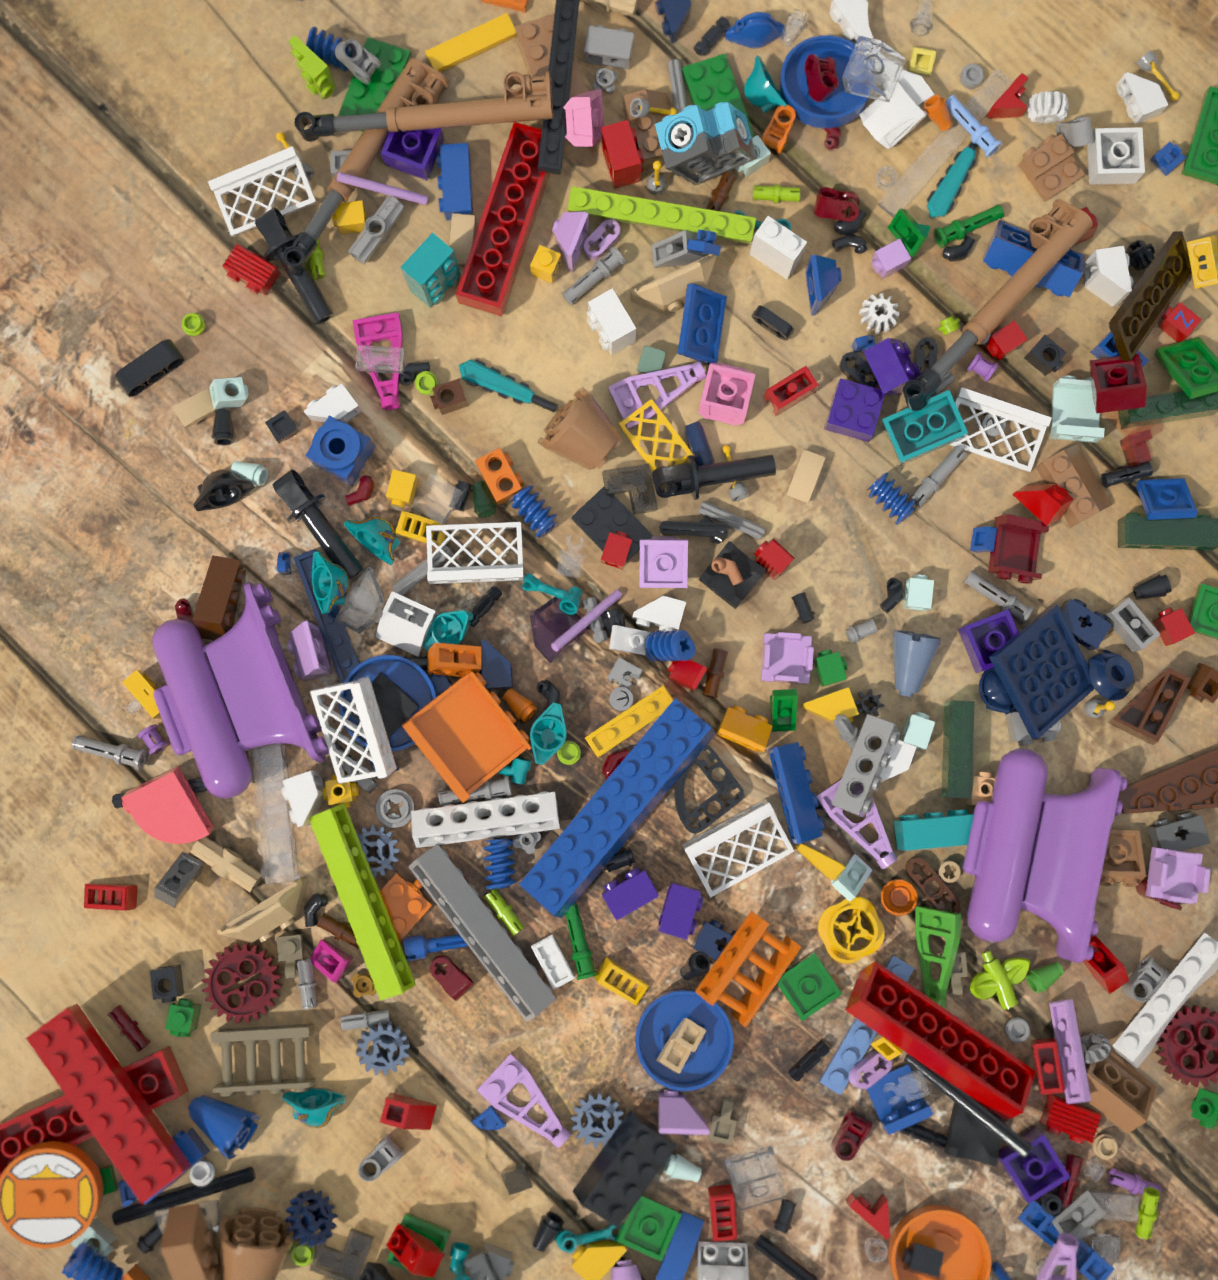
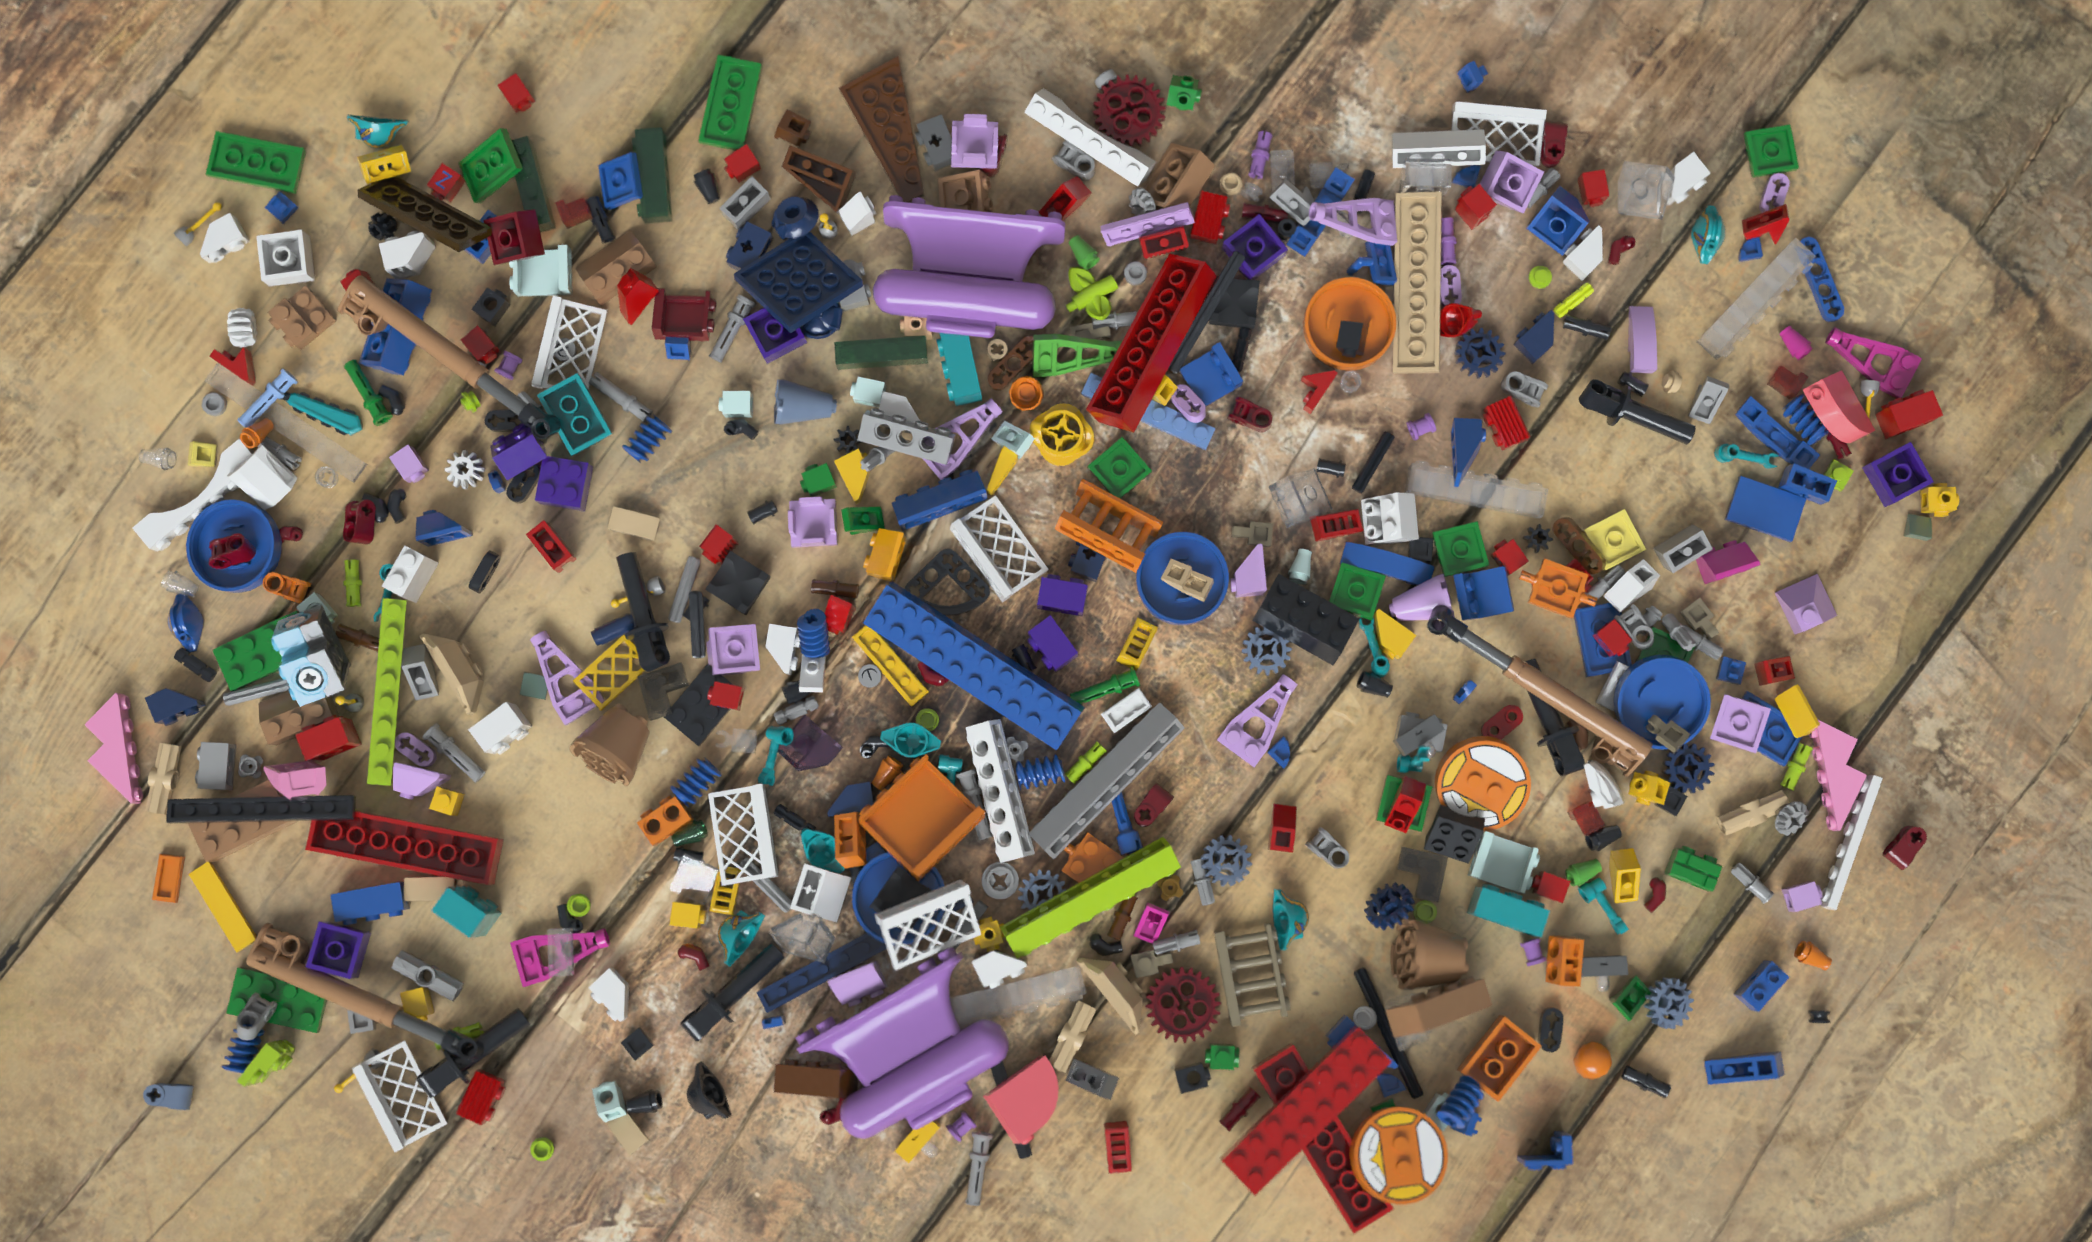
camera: 95 degrees left, 0 degrees up
(149, 368) = (591, 1186): black beam -> none
(150, 1239) = (1429, 1057): black pin -> none
(223, 1123) = (1314, 1003): blue cone -> none
(250, 471) = (686, 1068): light aqua cone -> none
(329, 582) = (788, 972): teal hat -> none
(340, 450) = (656, 979): blue piece -> none
(381, 188) = (386, 973): lavender bar -> none
(453, 387) = (583, 873): reddish brown brick -> none
(491, 380) = (568, 842): teal sword -> none
(516, 1179) = (1331, 719): clear smoke slope -> none
(527, 103) = (289, 837): medium nougat piece -> none
(586, 620) = (797, 716): lavender bar -> none
(621, 671) = (843, 676): light grey hinge -> none
(645, 108) = (280, 719): light grey hinge -> none
(696, 966) = (1112, 574): black cone -> none
(702, 324) = (493, 639): blue tile -> none
(704, 243) = (414, 646): blue tile -> none
(726, 393) = (559, 608): bright pink slope -> none
(729, 568) = (732, 585): nougat arm -> none
(761, 89) = (247, 608): teal hat -> none
(808, 1061) = (1188, 460): black axle -> none
(861, 631) = (779, 455): light grey pin -> none
(873, 69) = (221, 500): clear slope -> none
(909, 231) = (379, 451): green slope -> none
(911, 1085) = (1198, 364): clear plate -> none
(915, 136) = (282, 453): none -> light grey axle
(968, 1002) = (1115, 320): none -> light grey axle
(1077, 131) = (264, 297): light grey piece -> none
(1109, 741) = (857, 213): none -> white slope
(1147, 1212) = (1283, 141): lime pin -> none

